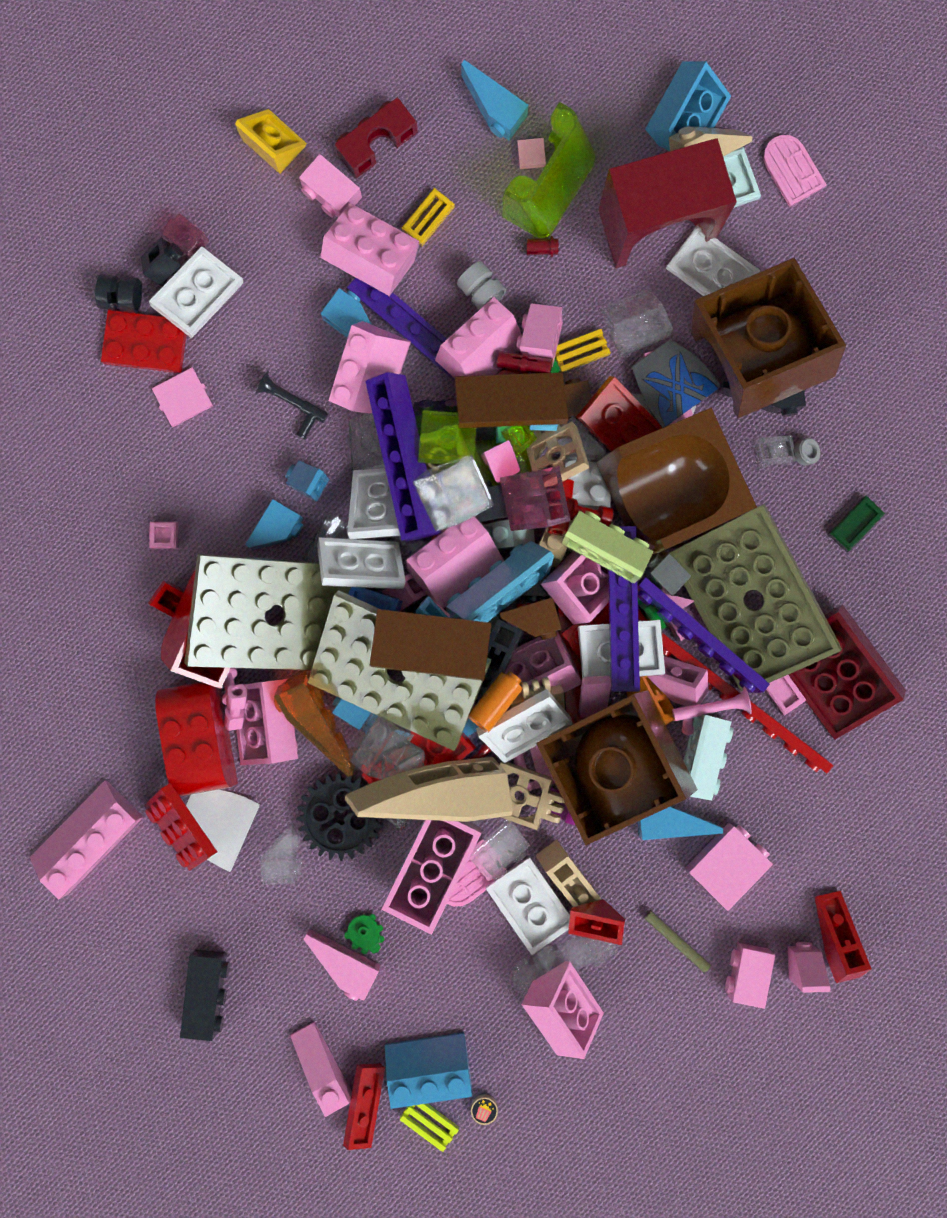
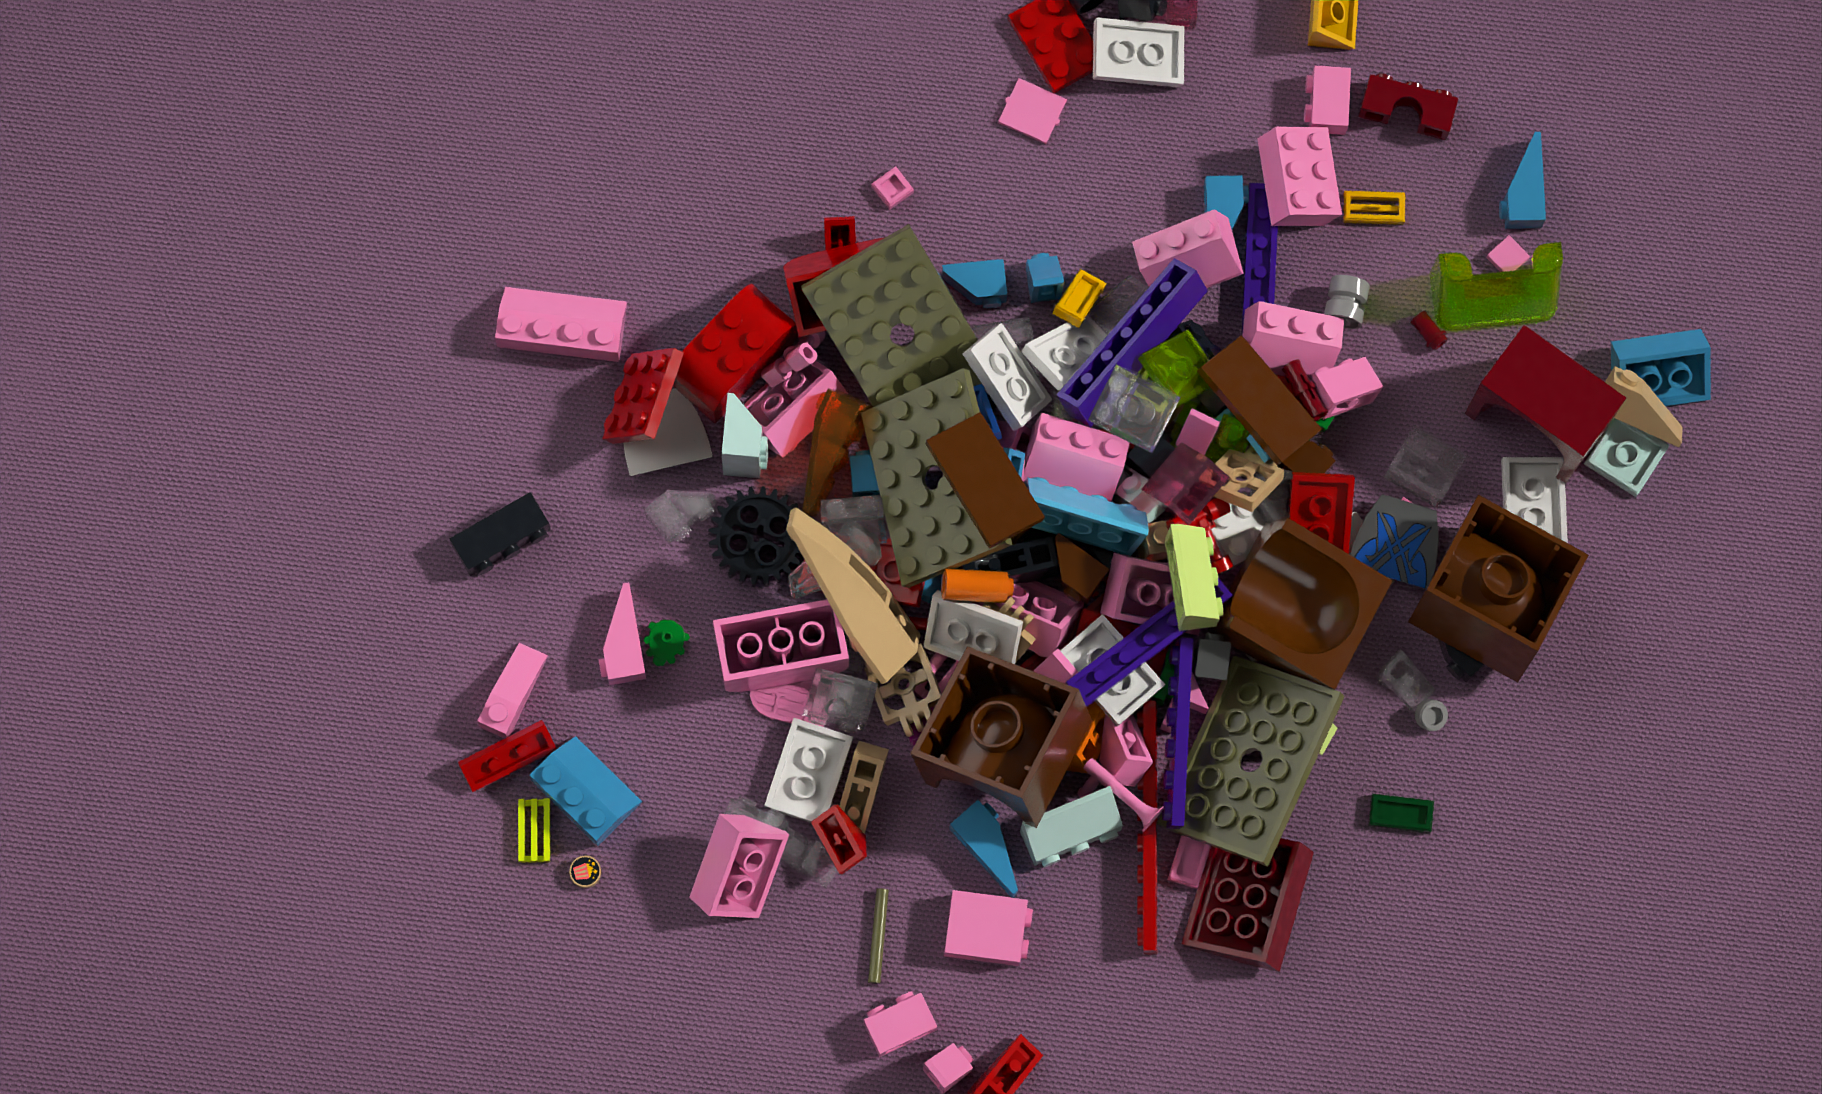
camera: 50 degrees right, 10 degrees down
(263, 783) = (743, 443): none -> light aqua slope
(313, 412) = (1111, 237): black piece -> none
(340, 467) = (1079, 298): none -> yellow tile
(577, 341) = (1367, 428): yellow tile -> none
(792, 169) = (1687, 506): bright pink window -> none

